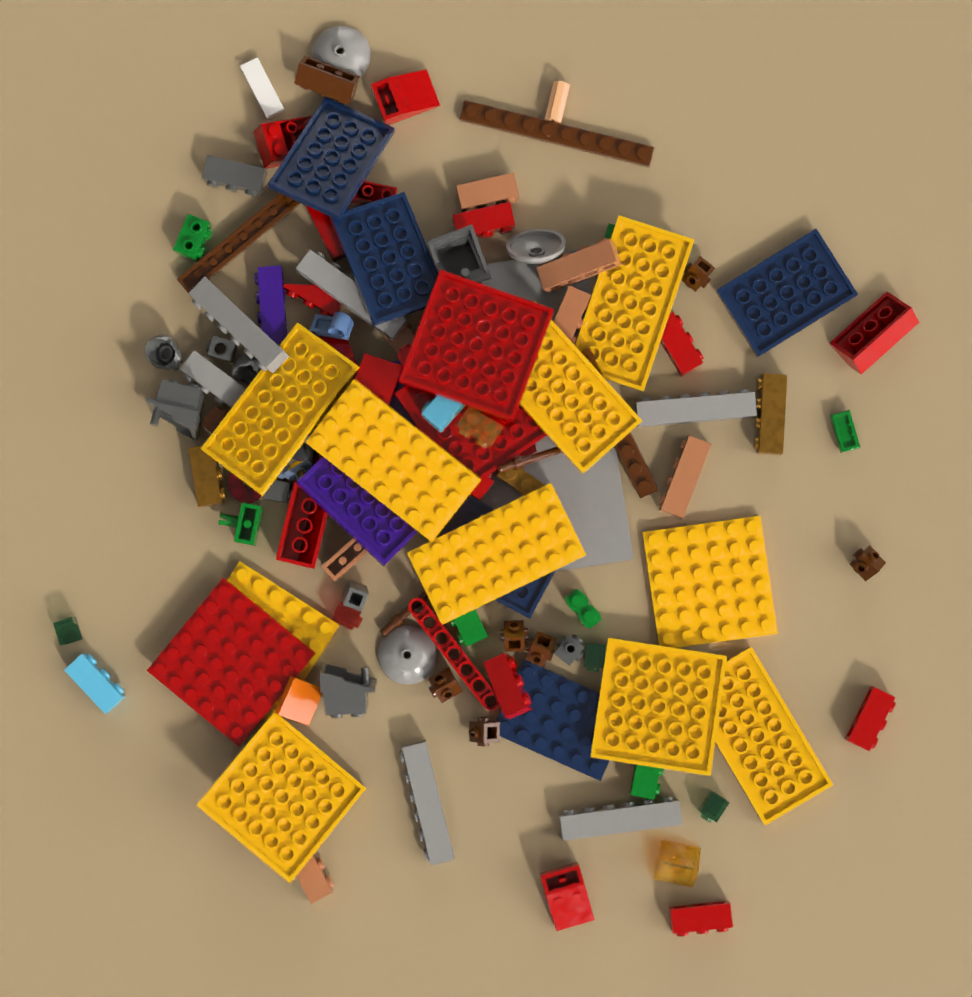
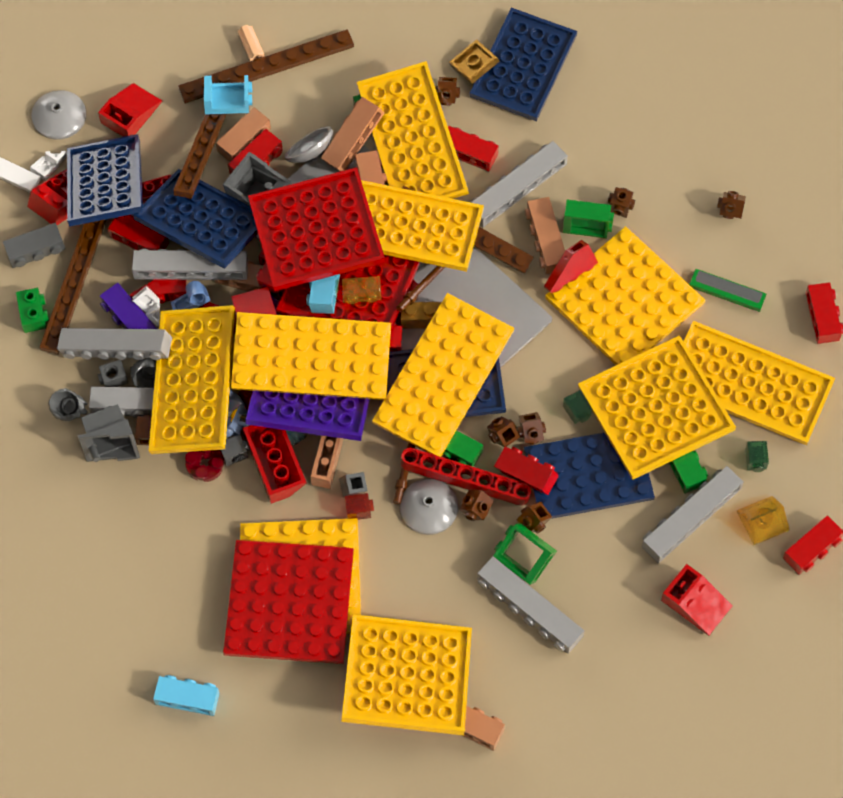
camera: 30 degrees left, 20 degrees down
(67, 631) = (133, 670): clear green panel -> none
(206, 478) = (167, 477): pearl gold brick -> none
(246, 523) = (225, 489): green brick -> none
(296, 304) = (149, 302): none -> white slope
(298, 100) = (48, 164): none -> white slope
(299, 700) = (367, 594): orange tile -> none
(326, 80) = (60, 134): reddish brown brick -> none
(345, 691) = (399, 559): dark grey piece -> none
(440, 763) = (538, 568): none -> green window
(443, 181) = (199, 155): none -> reddish brown plate
(496, 146) = (227, 97): none -> medium azure panel
(563, 654) = (554, 413): dark grey brick -> none
(579, 604) = (538, 377): green brick -> none
(683, 525) = (574, 262): none -> slope
(729, 489) = (587, 219): none -> green window
(743, 261) = (474, 61): none -> pearl gold tile
(765, 491) = (621, 201): none -> reddish brown brick
(771, 414) = (579, 151): pearl gold brick -> none
(804, 637) = (727, 290): none -> tile
(845, 431) = (642, 128): green plate -> none
(874, 332) = (610, 49): red slope -> none

